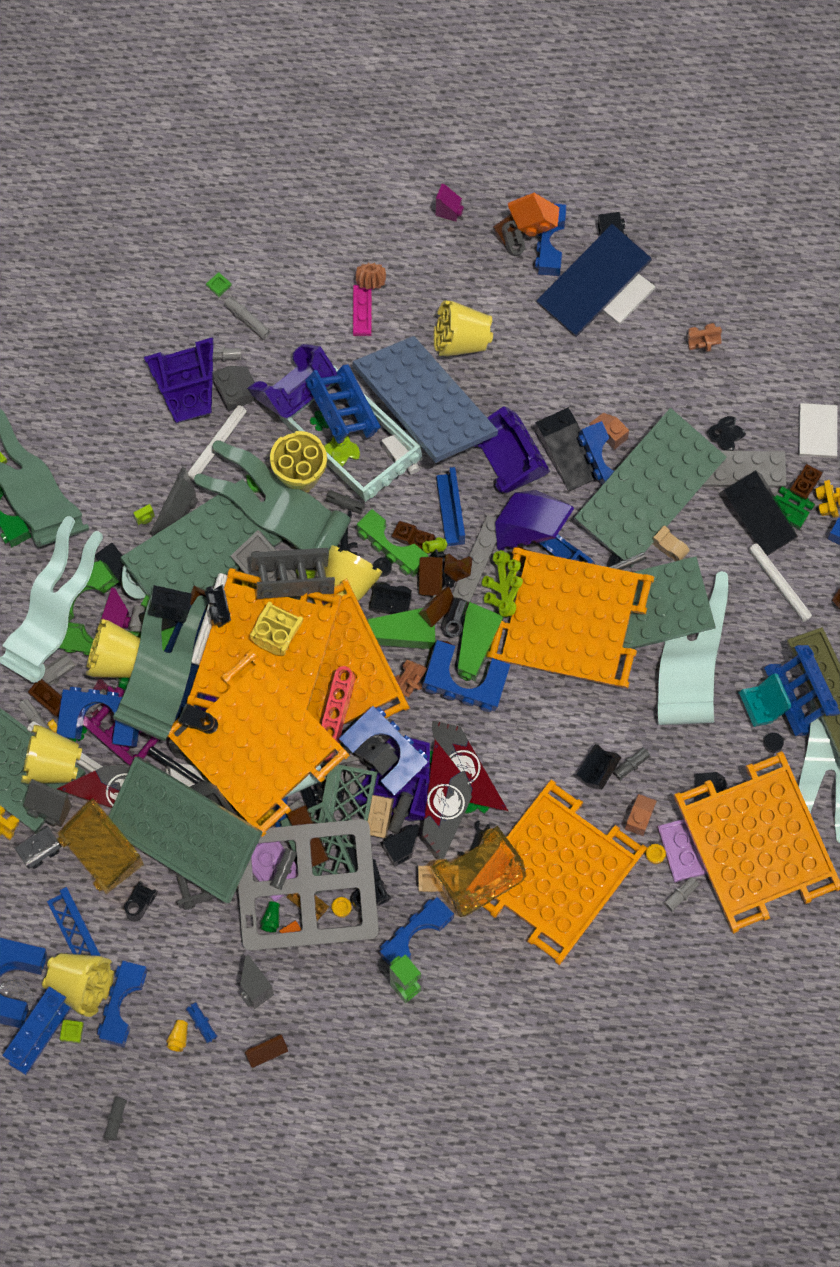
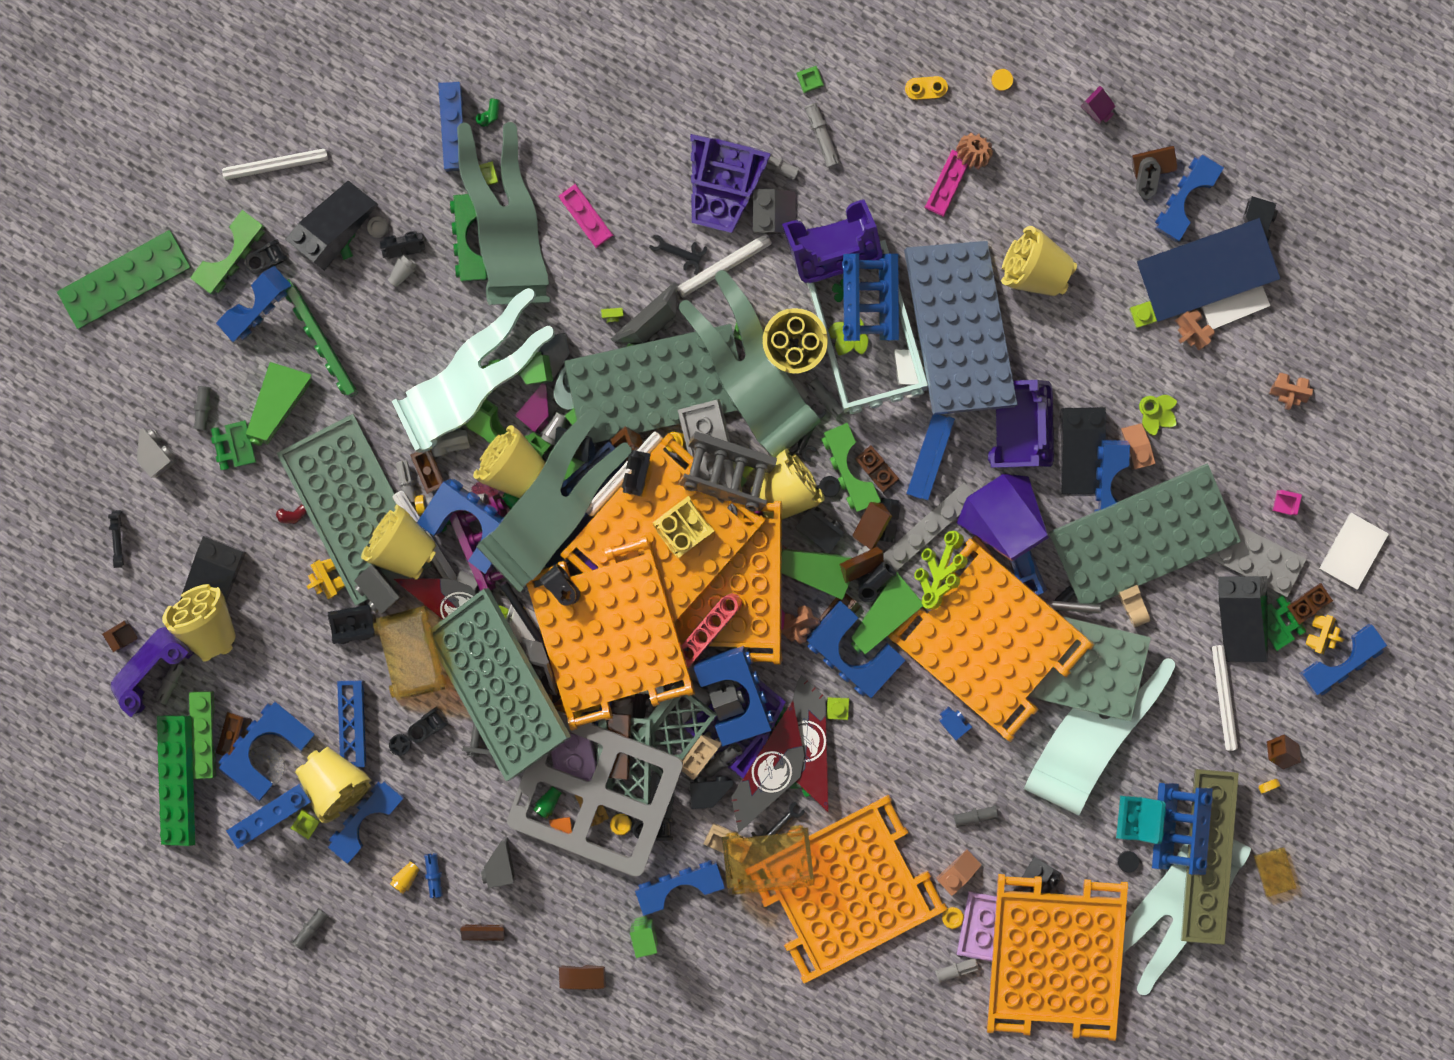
camera: 25 degrees right, 20 degrees up
(88, 455) = (585, 216): none -> dark pink tile
(121, 924) = (397, 746): none -> black wheel
(169, 604) = (590, 442): black bracket -> none
(189, 448) = (693, 258): none -> black bar
(283, 869) = (578, 770): dark grey pin -> none
(312, 252) = (926, 88): none -> yellow plate
(366, 222) = (1002, 80): none -> yellow tile
(369, 1048) = (582, 977): none -> reddish brown slope
(439, 544) = (896, 491): lime pin -> none
(457, 568) = (905, 527): reddish brown panel -> none
(475, 732) = (837, 708): none -> lime plate
(534, 214) = (1181, 170): orange slope -> none
(561, 335) = (1142, 314): none -> lime plate
(575, 698) = (954, 723): none -> blue brick
(598, 767) = (940, 806): black bracket -> none
(606, 328) = (1192, 331): none -> nougat hips
(614, 399) = (1160, 414): none -> lime plate
(729, 433) = (1260, 509): black plate -> none
(747, 416) = (1287, 502): none -> dark pink panel

